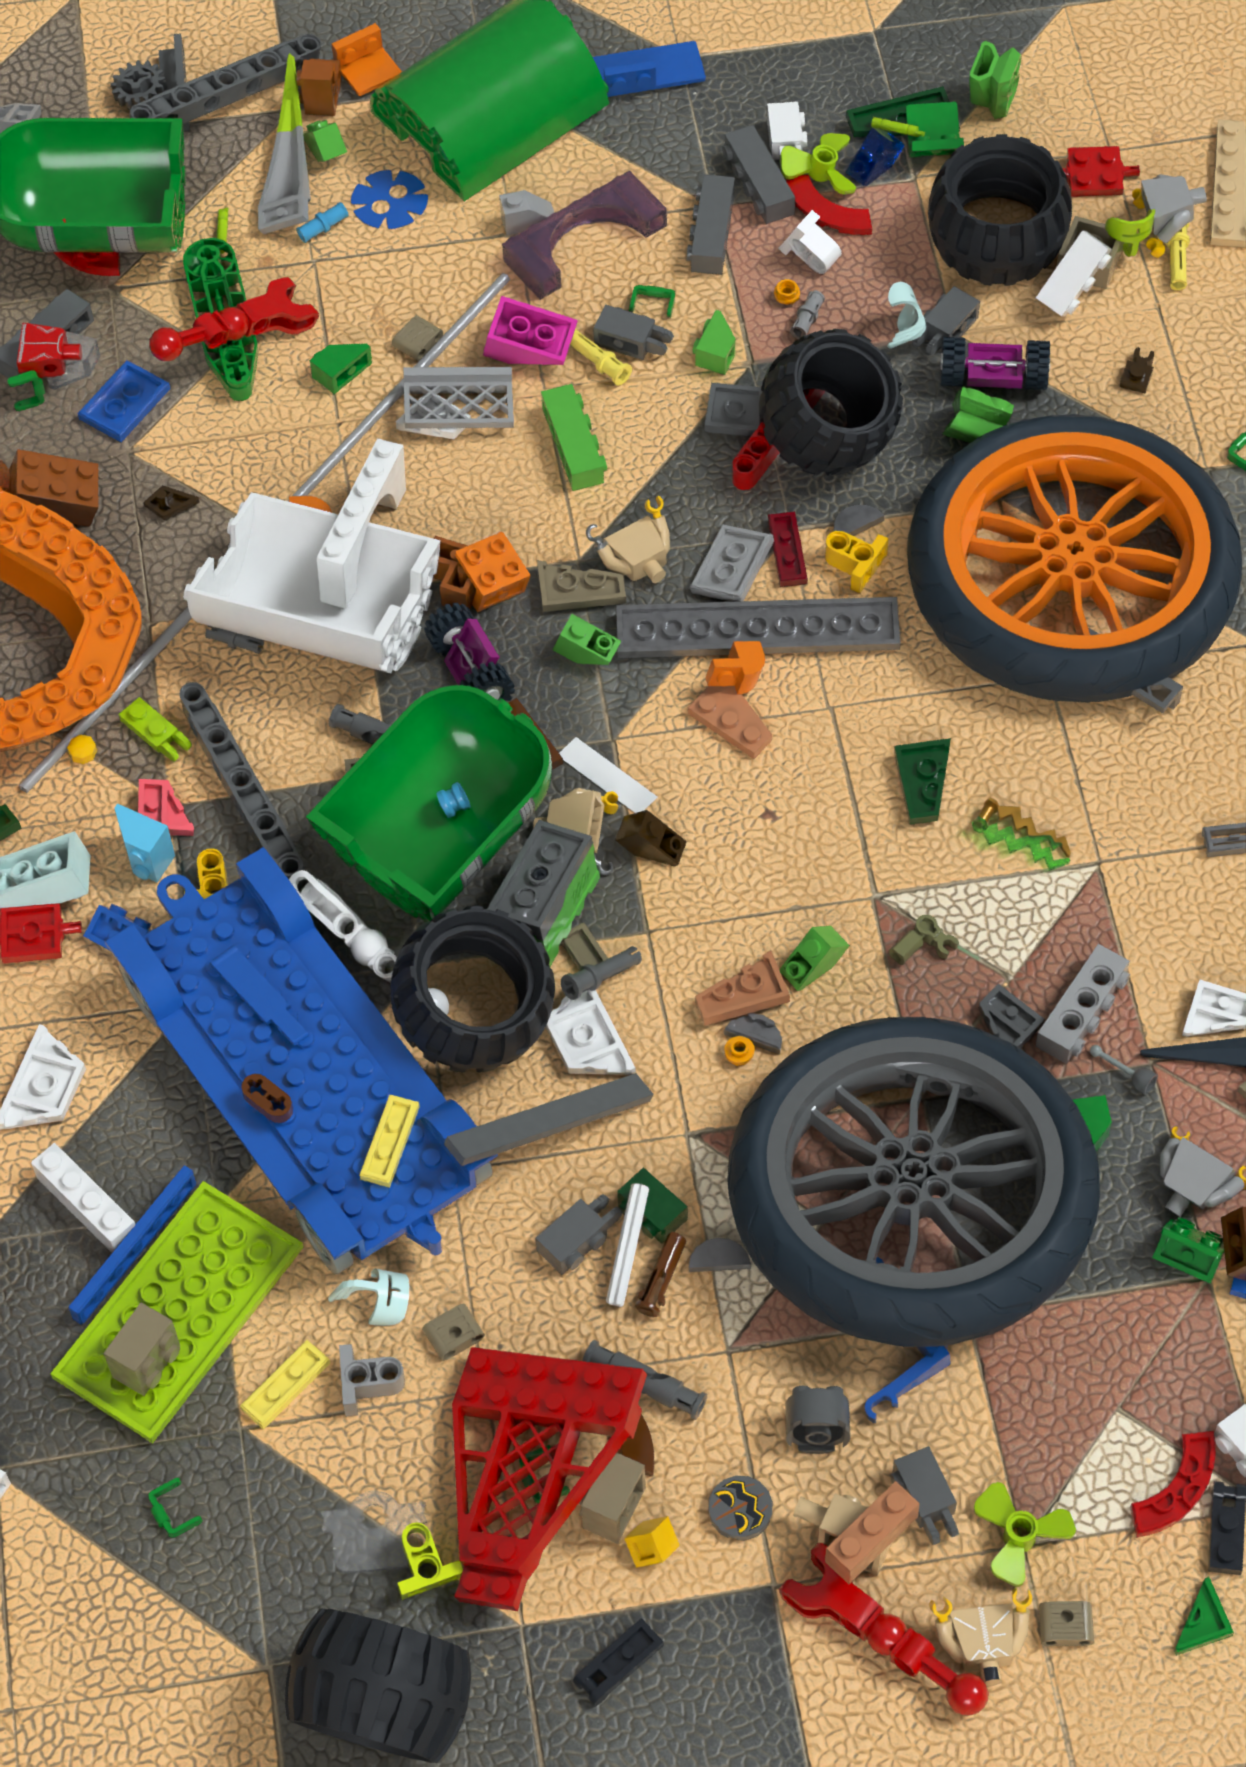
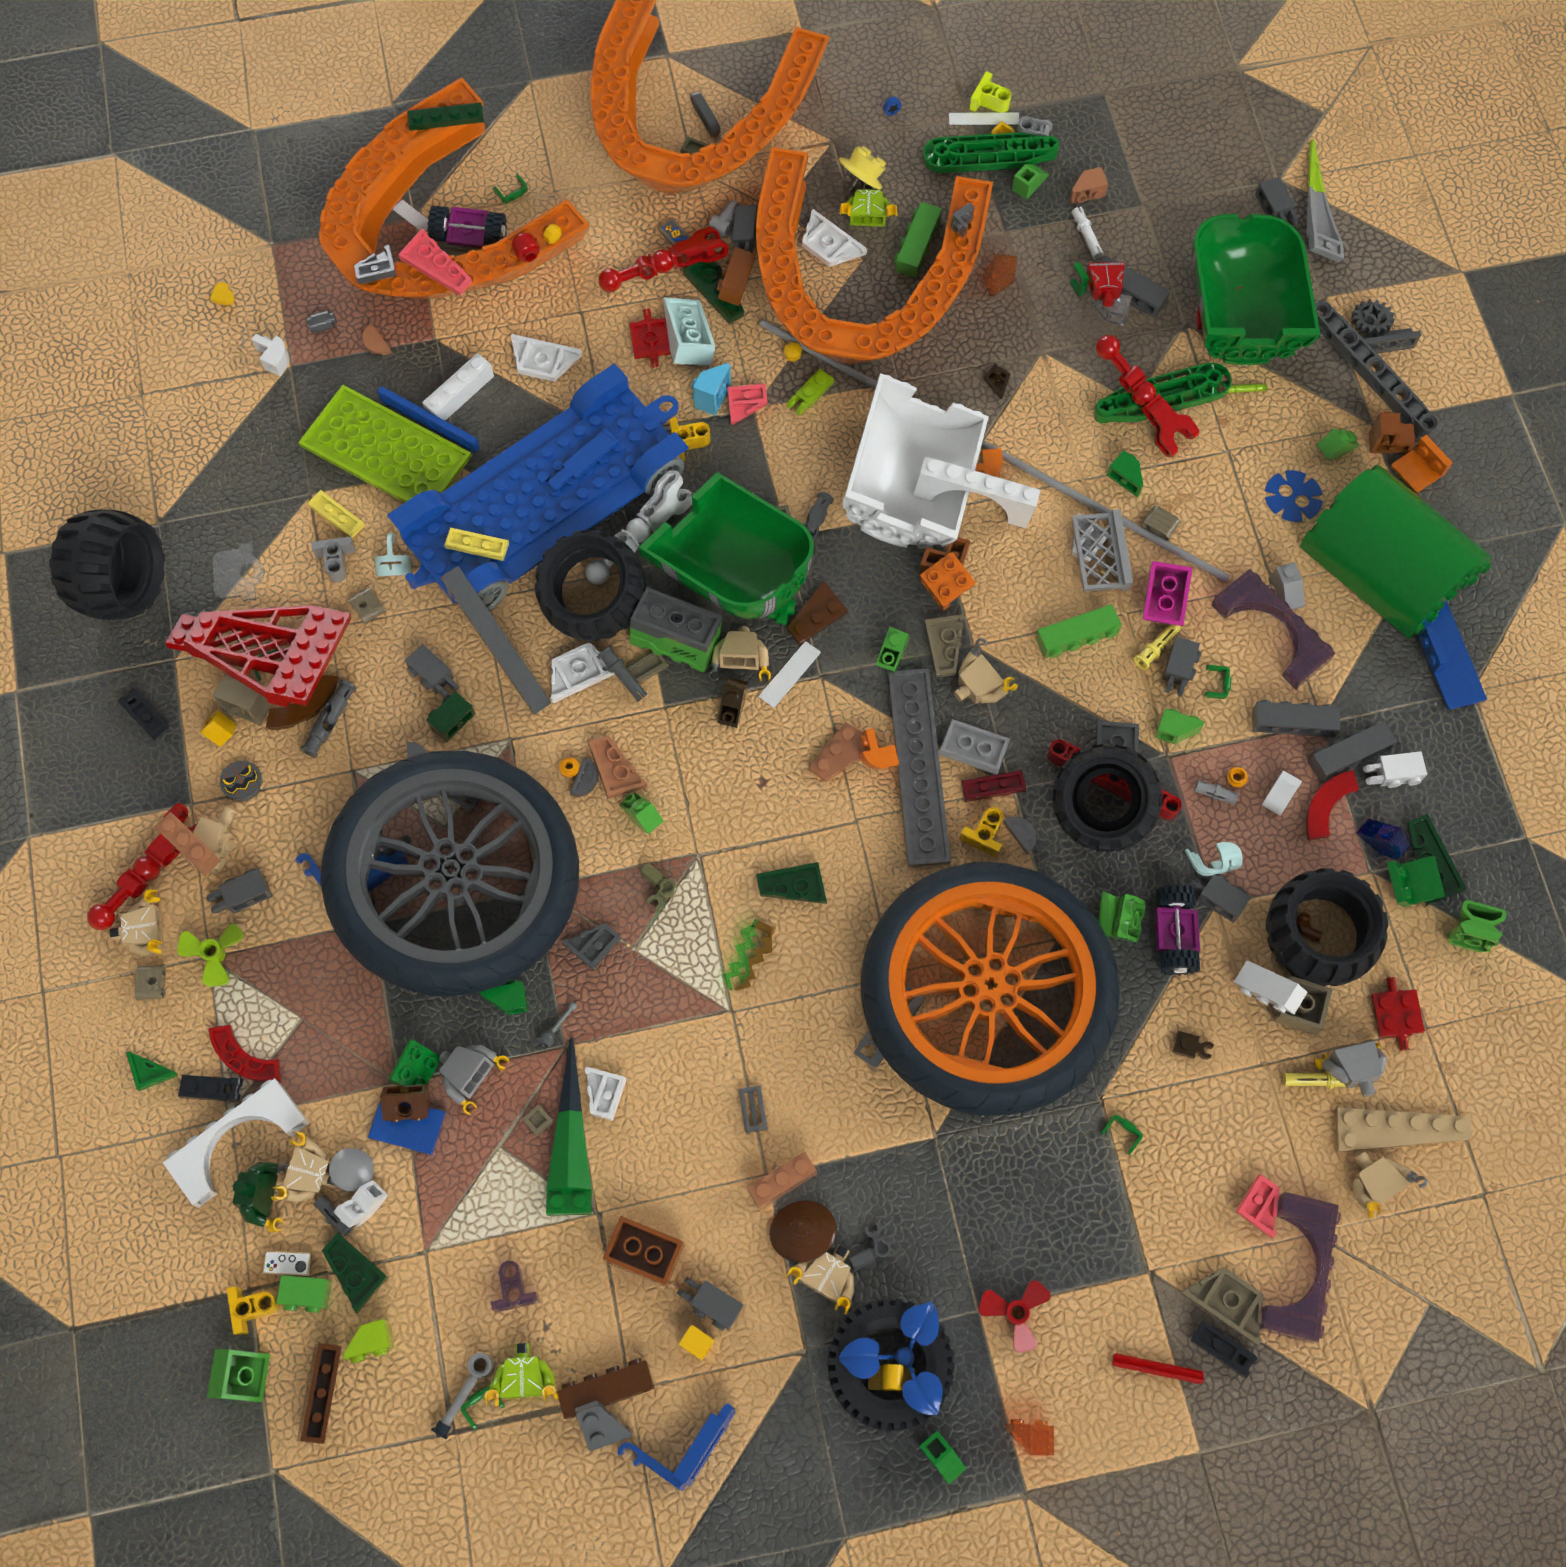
camera: 85 degrees right, 10 degrees up
(56, 483) = (993, 303): dark orange brick -> none
(111, 921) = (653, 385): blue bracket -> none
(123, 401) = (1079, 343): blue tile -> none
(142, 1349) = (344, 424): dark tan brick -> none
(160, 1514) = (254, 455): green piece -> none
(235, 770) = (778, 438): dark grey beam -> none
(271, 1093) = (508, 471): reddish brown beam -> none
(287, 182) = (1286, 422): light grey plate -> none
(322, 222) = (1260, 451): dark azure pin -> none
(425, 1554) = (212, 593): neon yellow tile -> none
(453, 800) = (748, 568): dark azure wheel -> none
(469, 651) = (894, 565): plate -> none
(627, 1245) = (418, 700): white axle -> none
(661, 1276) = (401, 725): reddish brown piece -> none
(817, 1419) = (289, 821): dark grey brick -> none
(820, 164) = (1365, 778): lime piece -> none
(896, 127) = (1413, 851): lime wheel -> none
(1101, 966) = (581, 974): light grey brick -> none
(1127, 231) = (1318, 1037): lime helmet -> none

